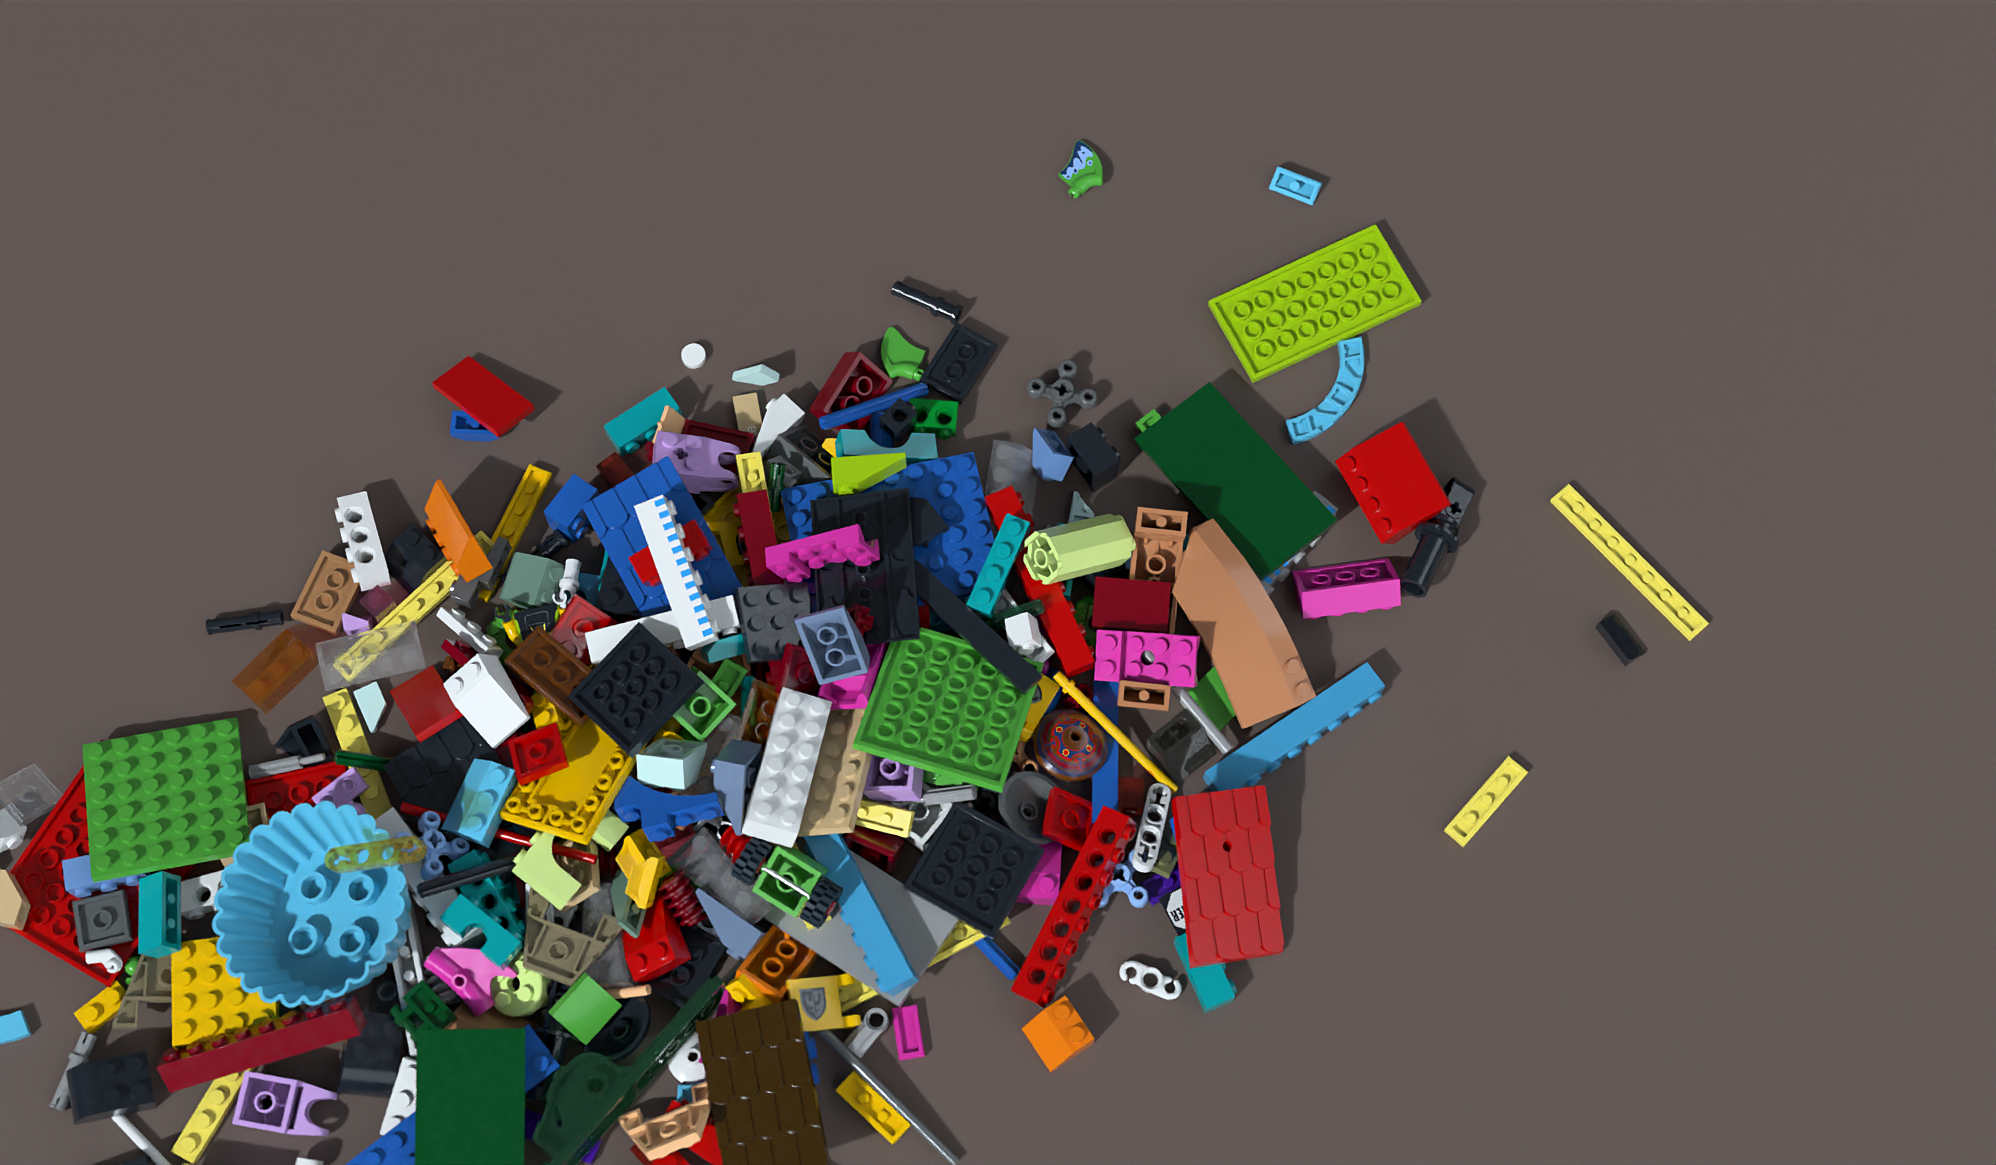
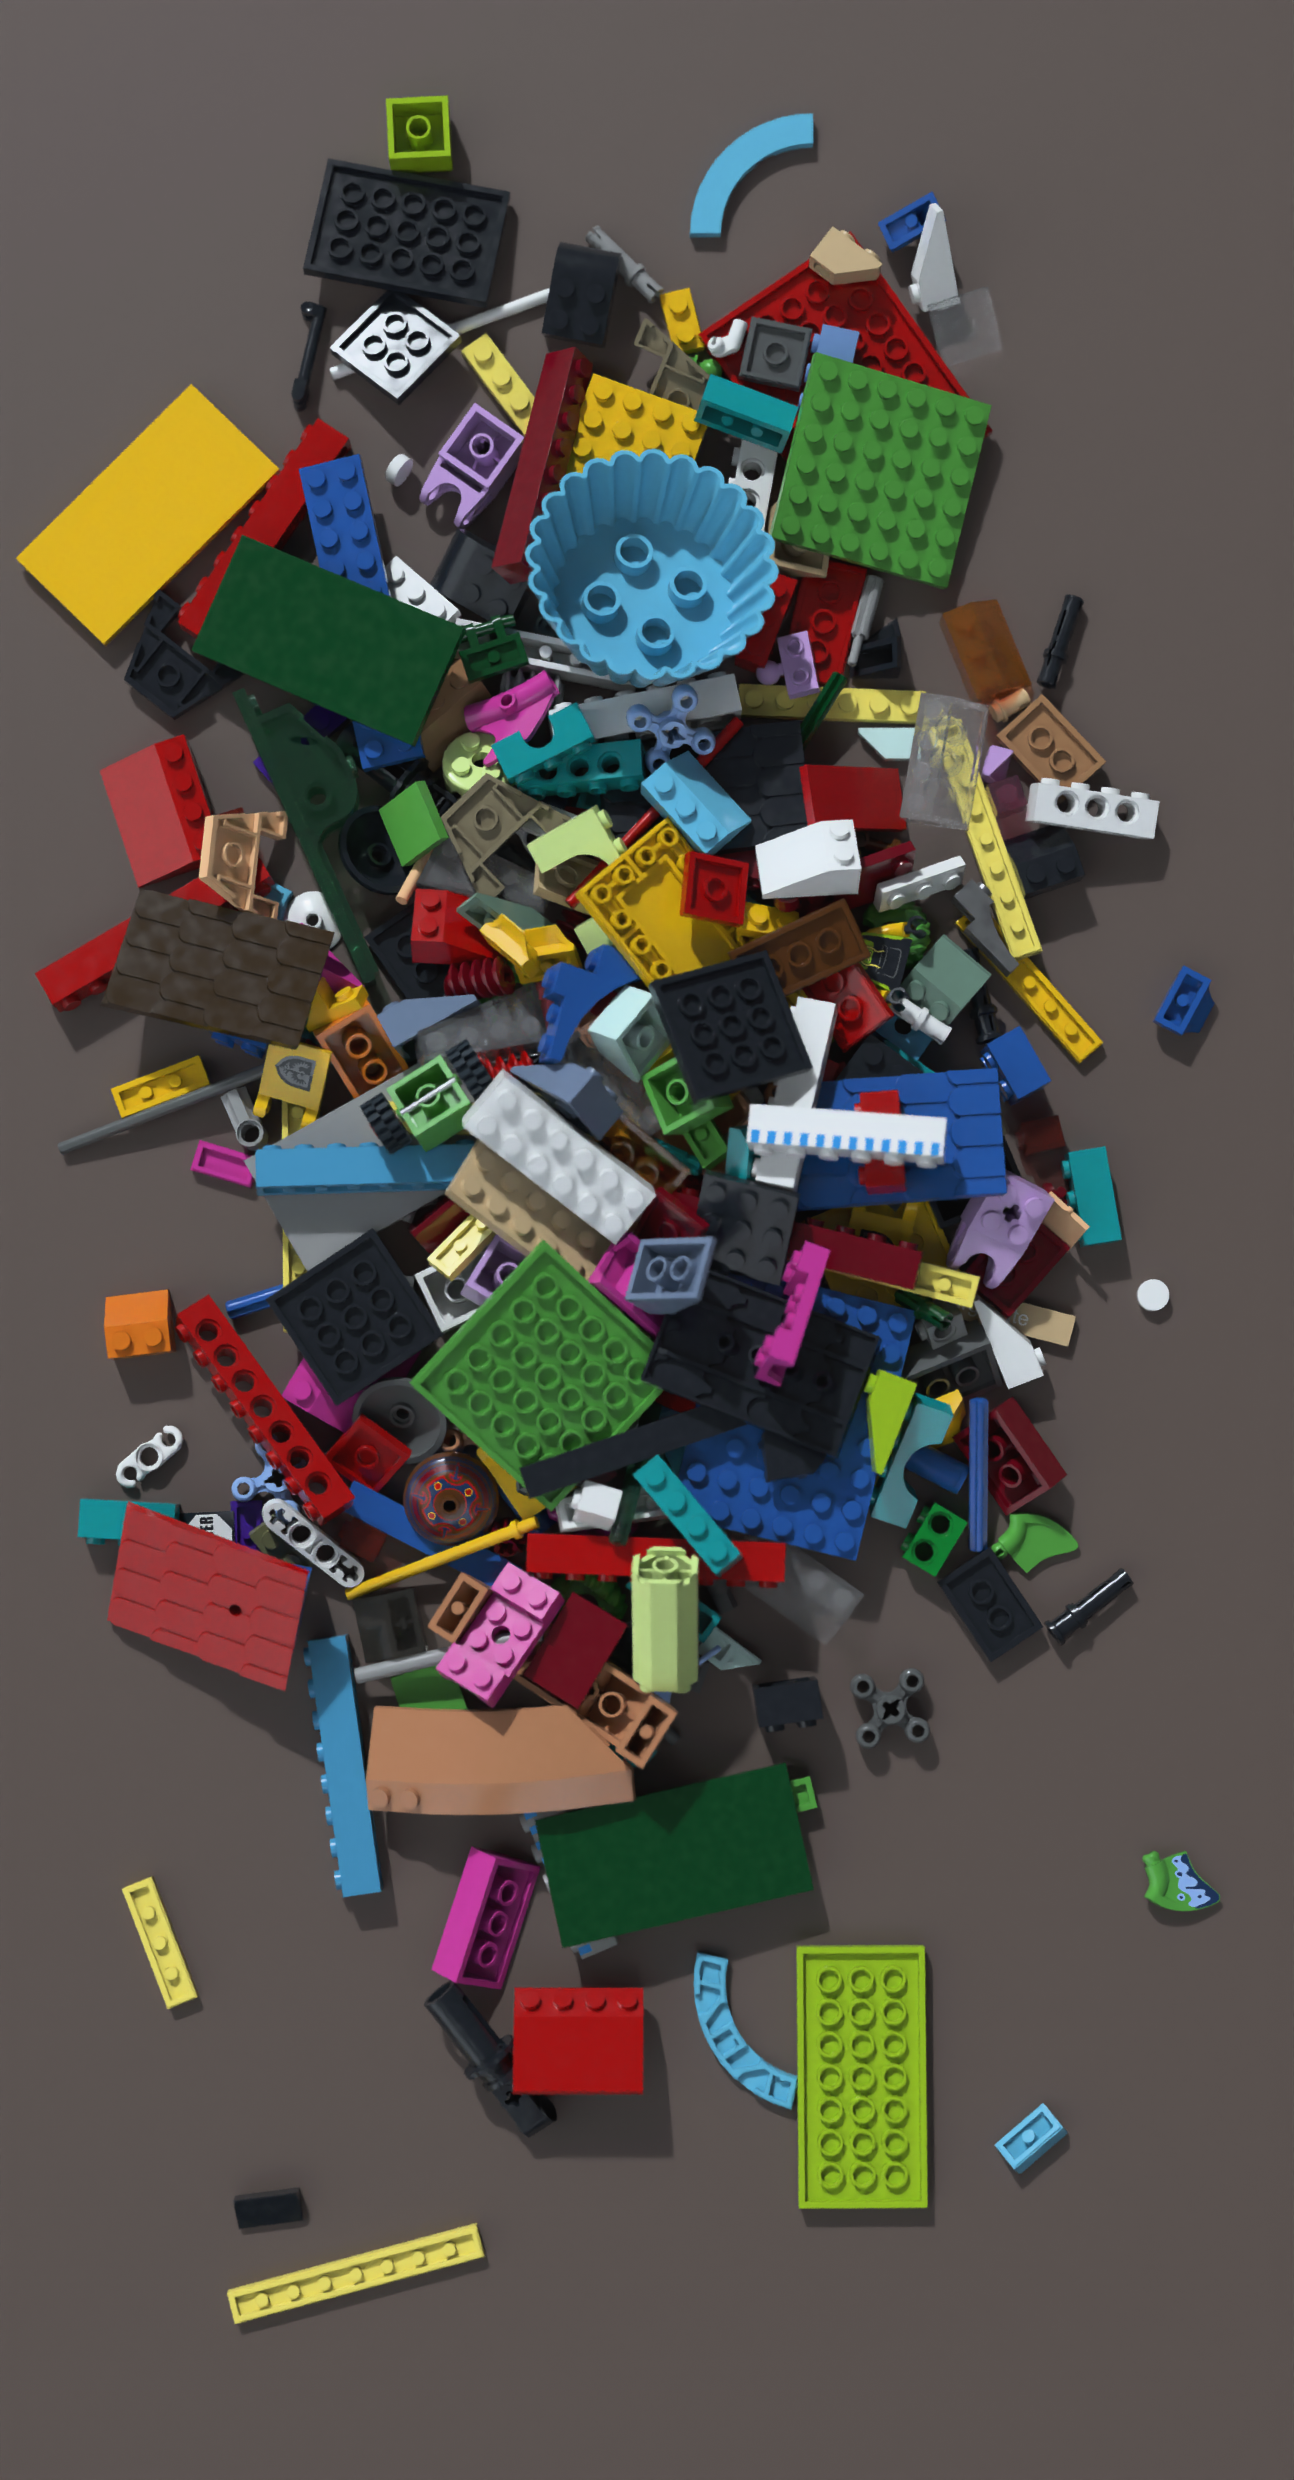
camera: 115 degrees right, 15 degrees up
(307, 634) = (1009, 705): none -> tan pin
(375, 857) = (662, 652): clear yellow beam -> none
(455, 535) = (1043, 916): orange slope -> none
(466, 876) = (611, 755): black axle -> none
(483, 396) = (1212, 1023): red tile -> none
(756, 375) = (1088, 1356): light aqua tile -> none
(861, 617) = (696, 1319): dark red gear -> none
(895, 428) = (935, 1481): black brick -> none
(947, 795) = (451, 1324): light grey axle -> none
(1050, 455) = (817, 1653): medium blue slope -> none

